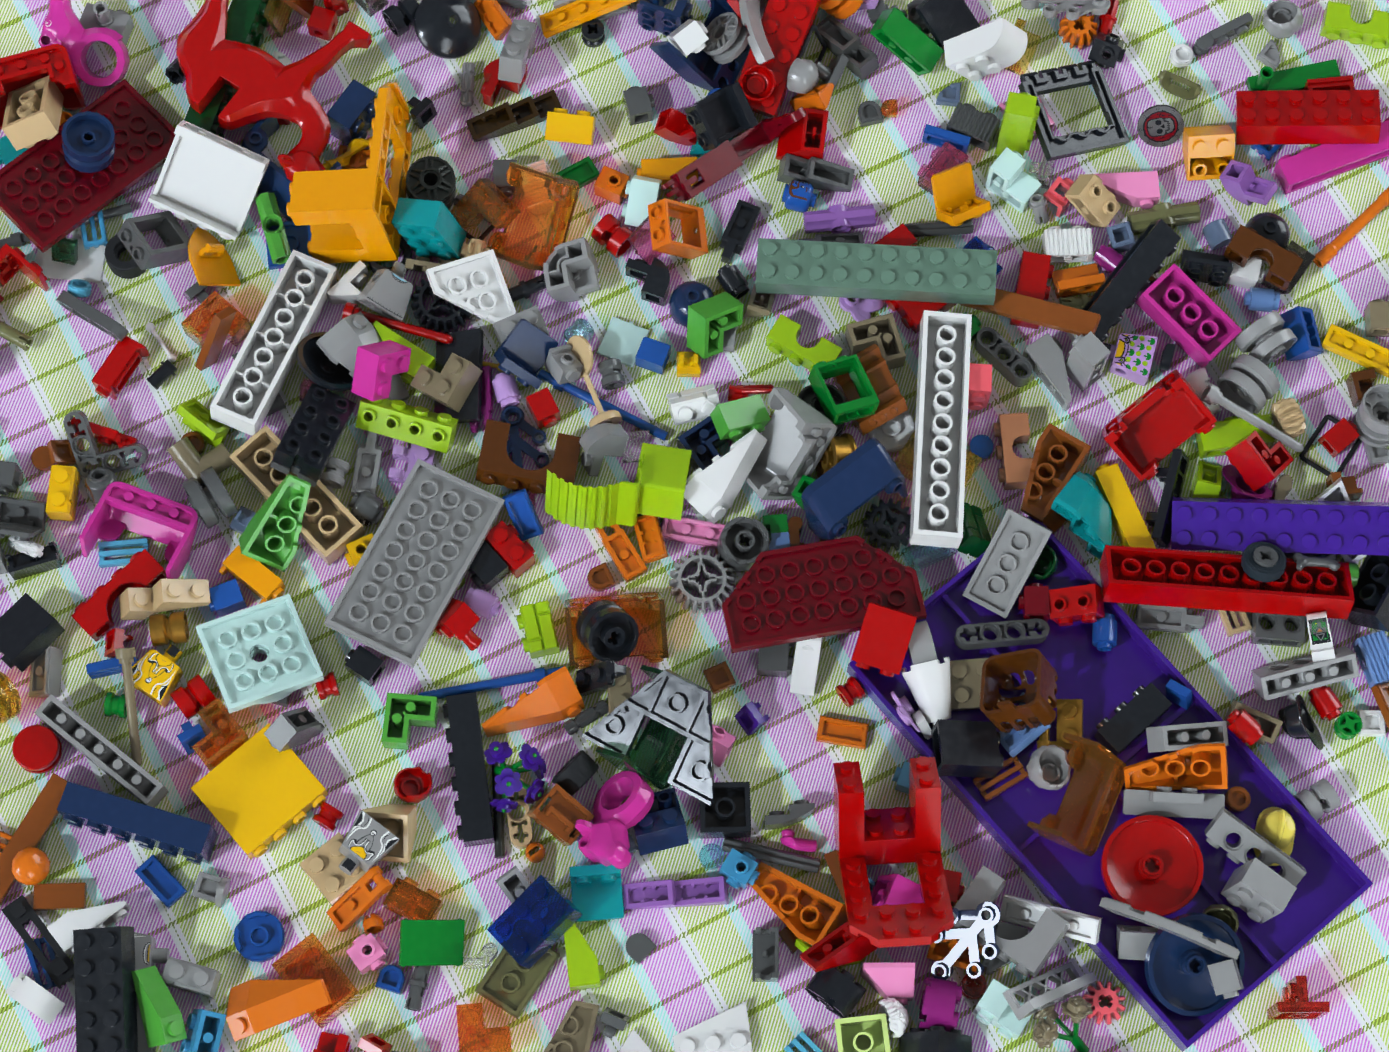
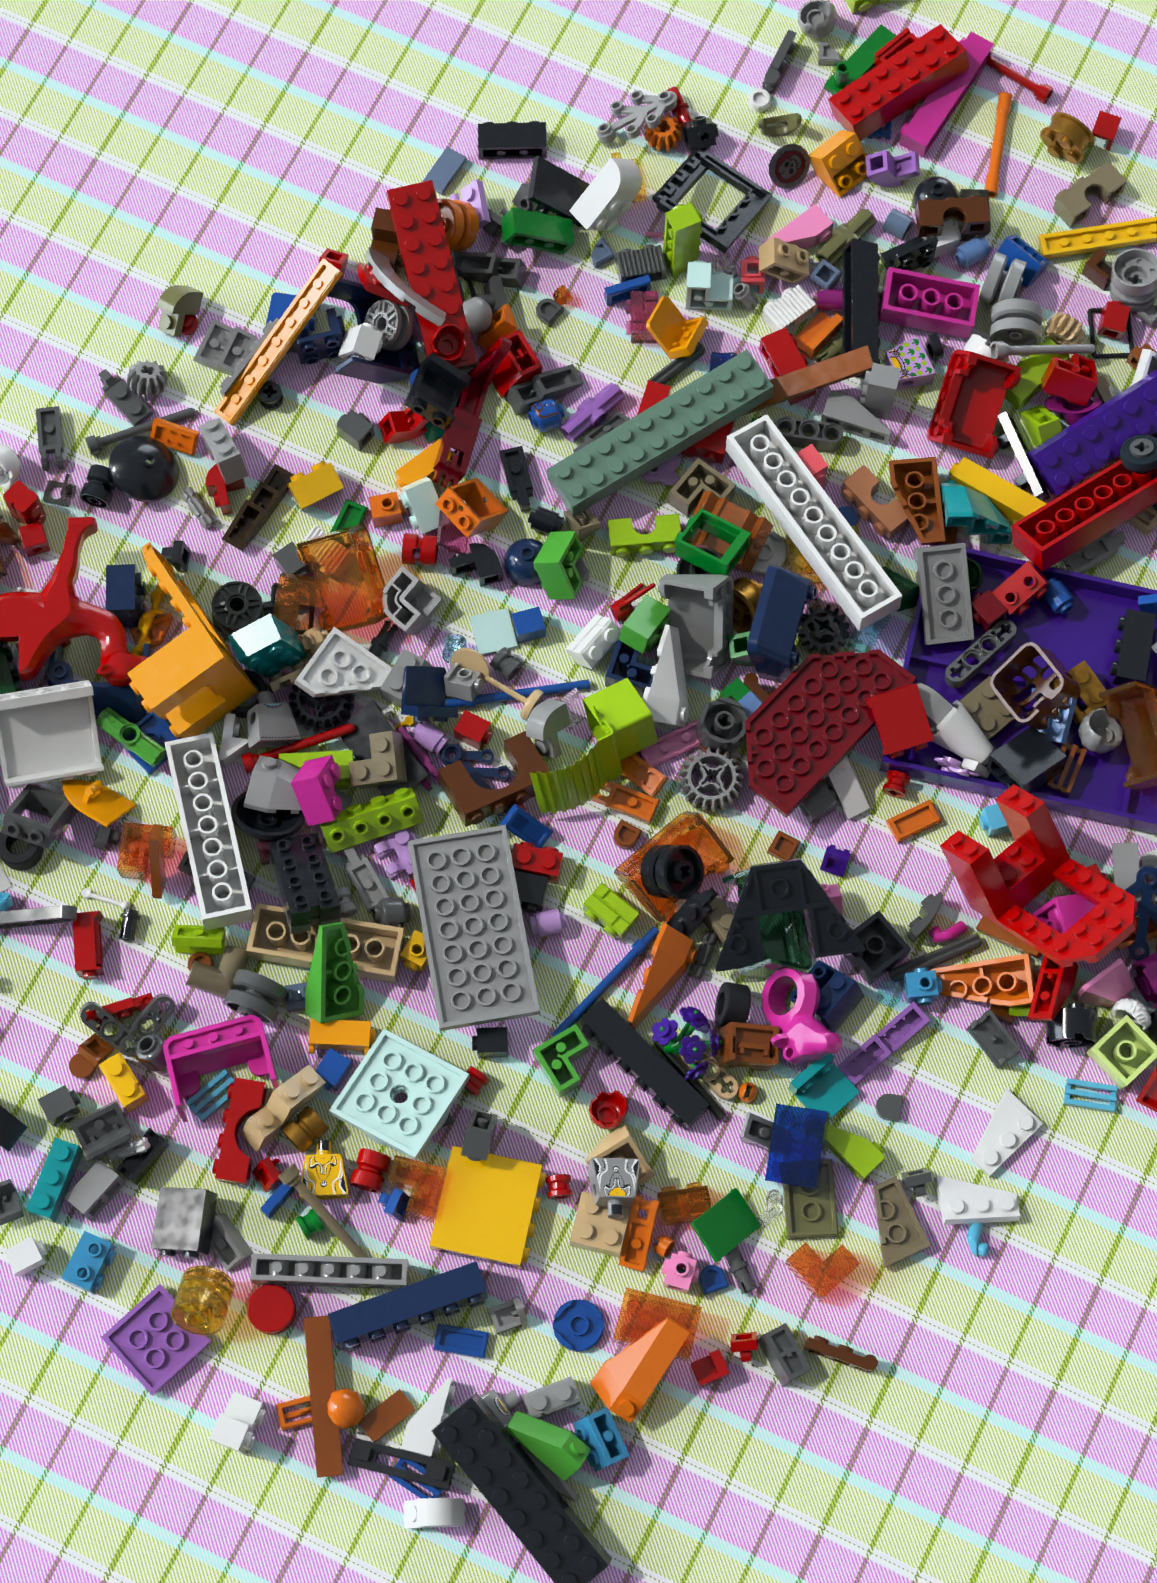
camera: 35 degrees left, 0 degrees up
(458, 622) = (546, 950): red brick -> none
(688, 364) = (561, 613): yellow tile -> none

